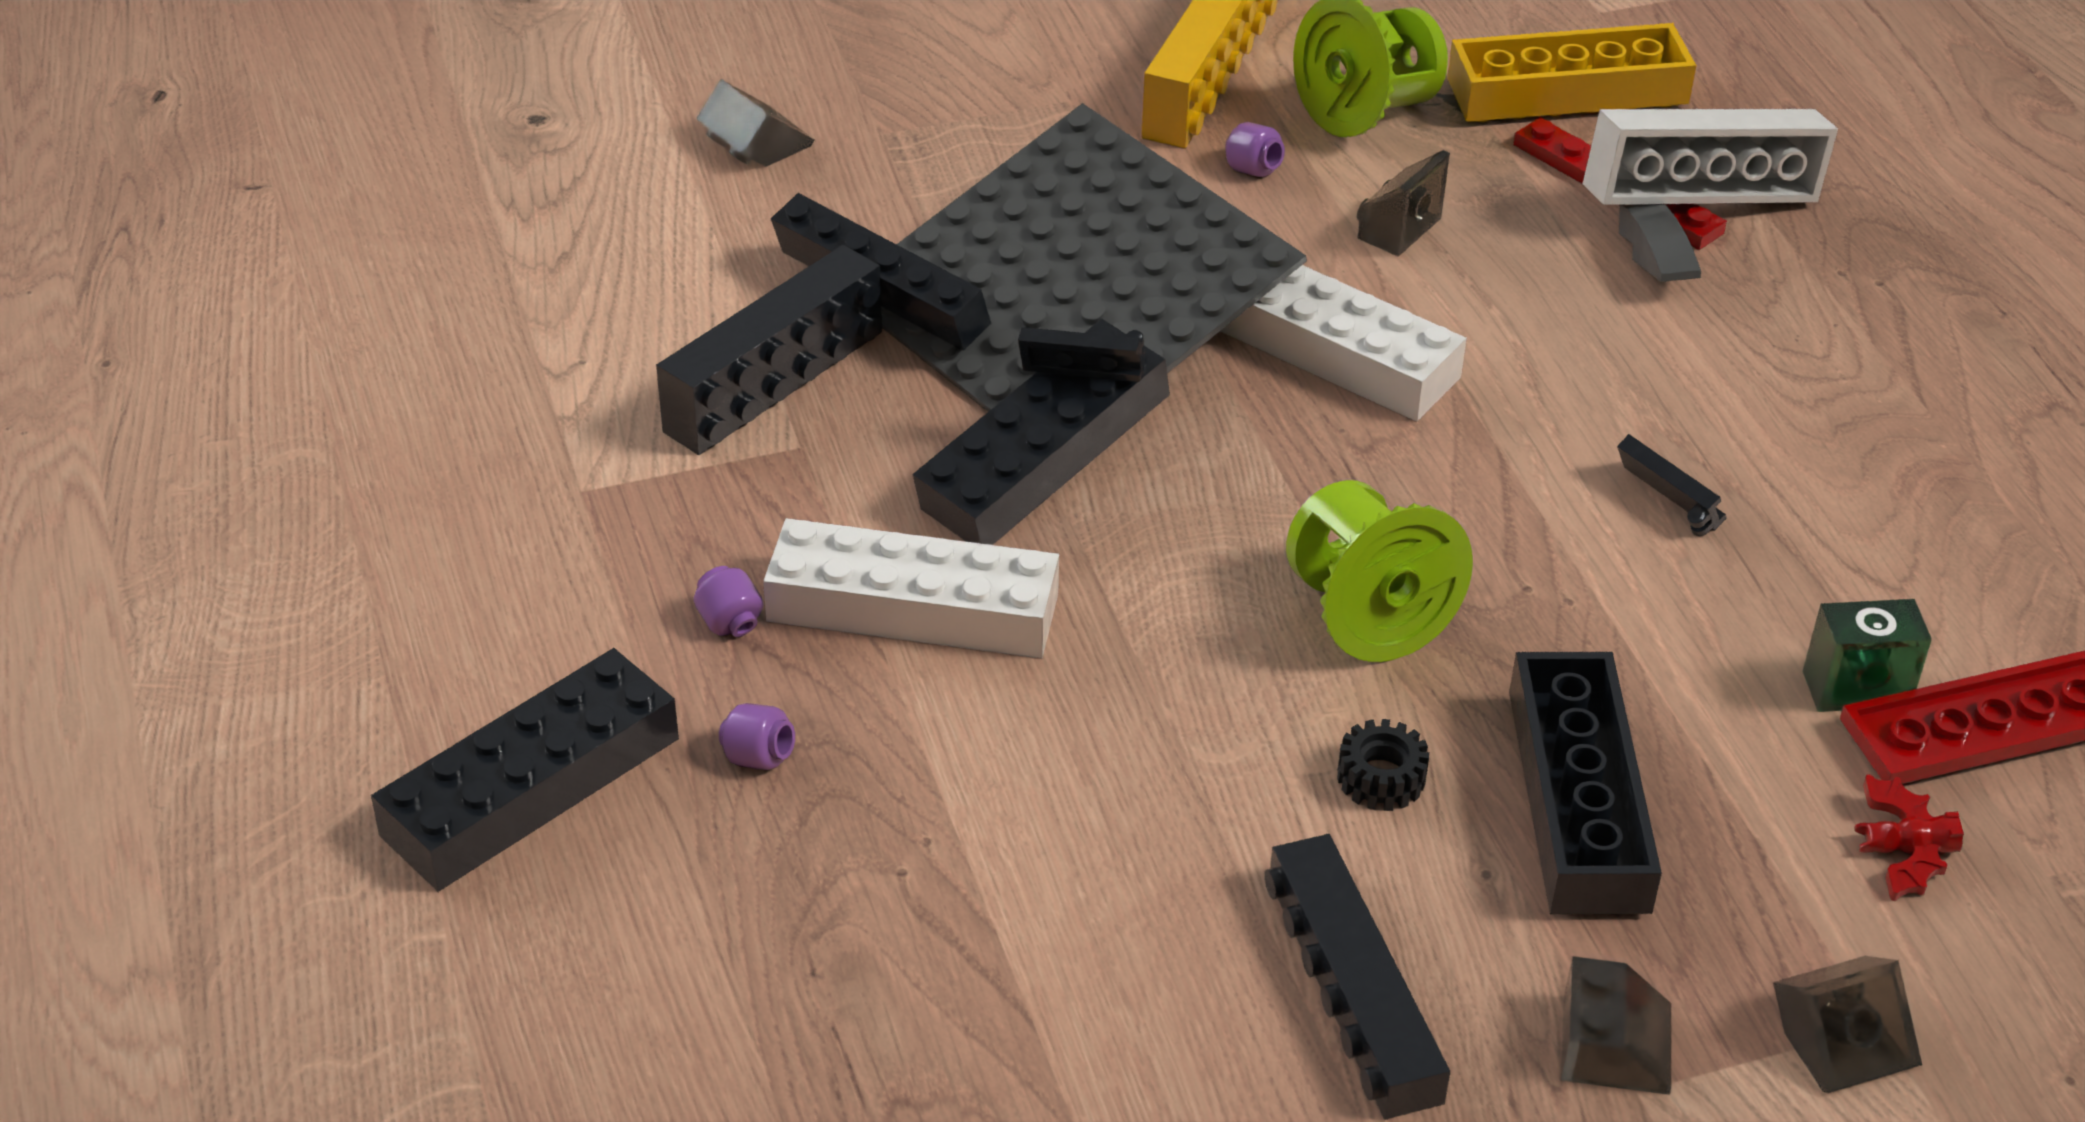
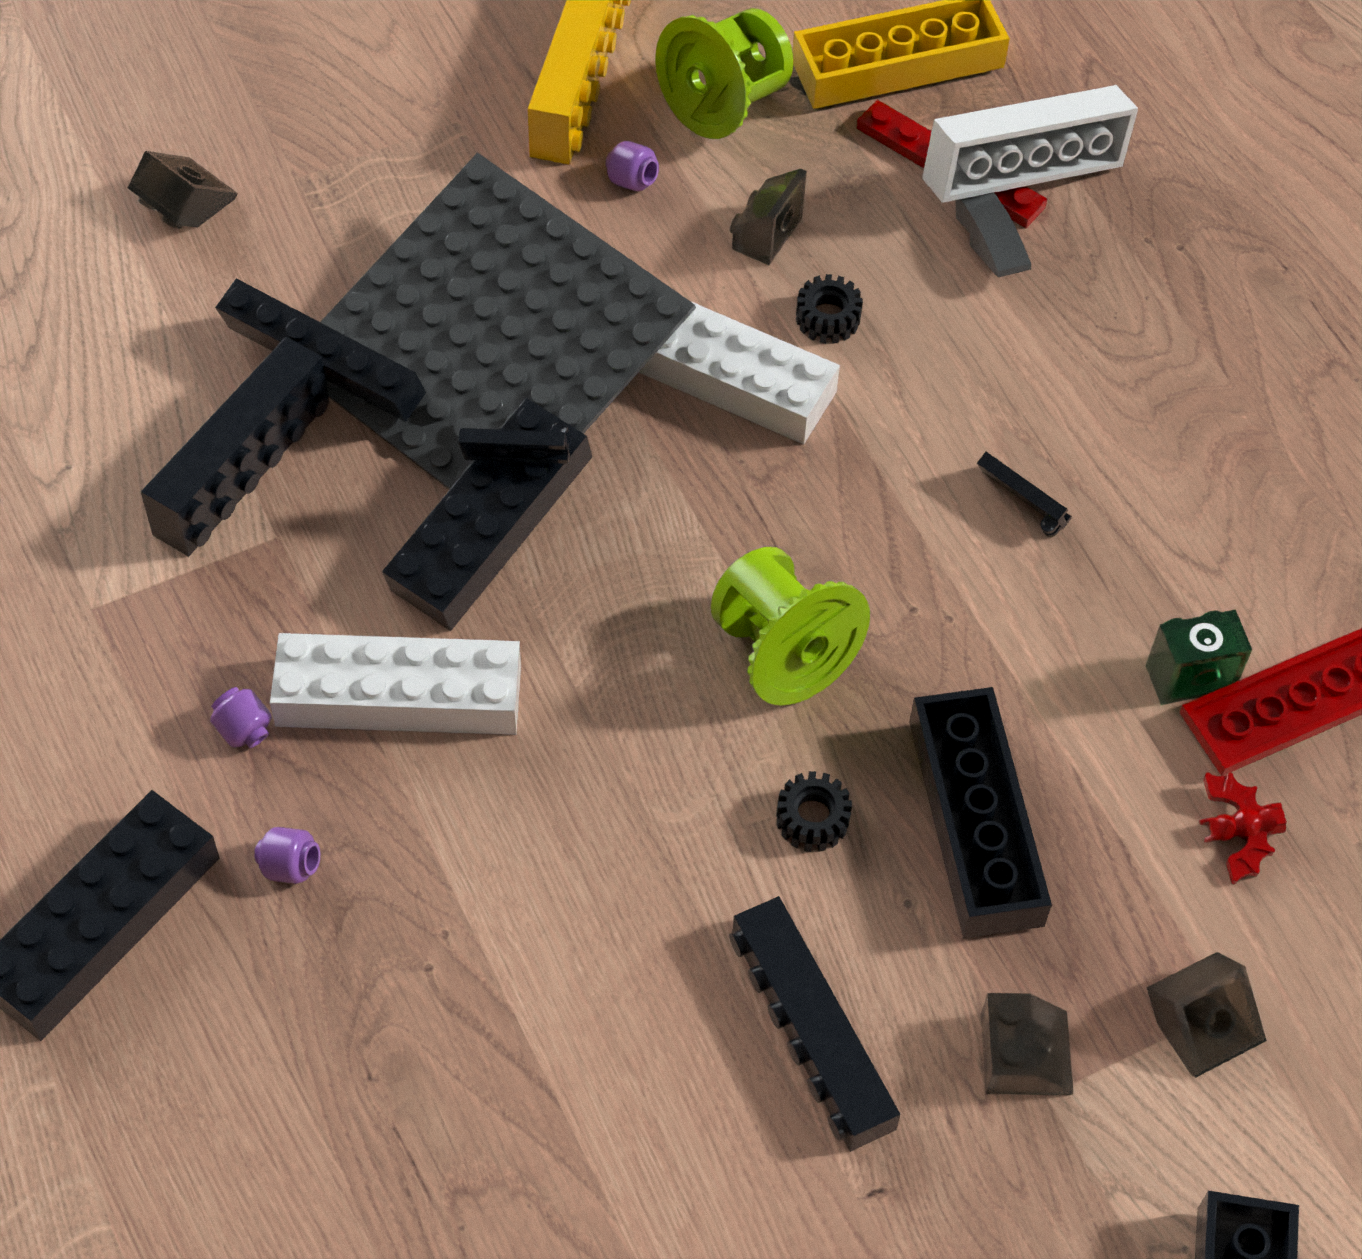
camera: 10 degrees left, 15 degrees up
(1461, 296) = (832, 293): none -> black tyre

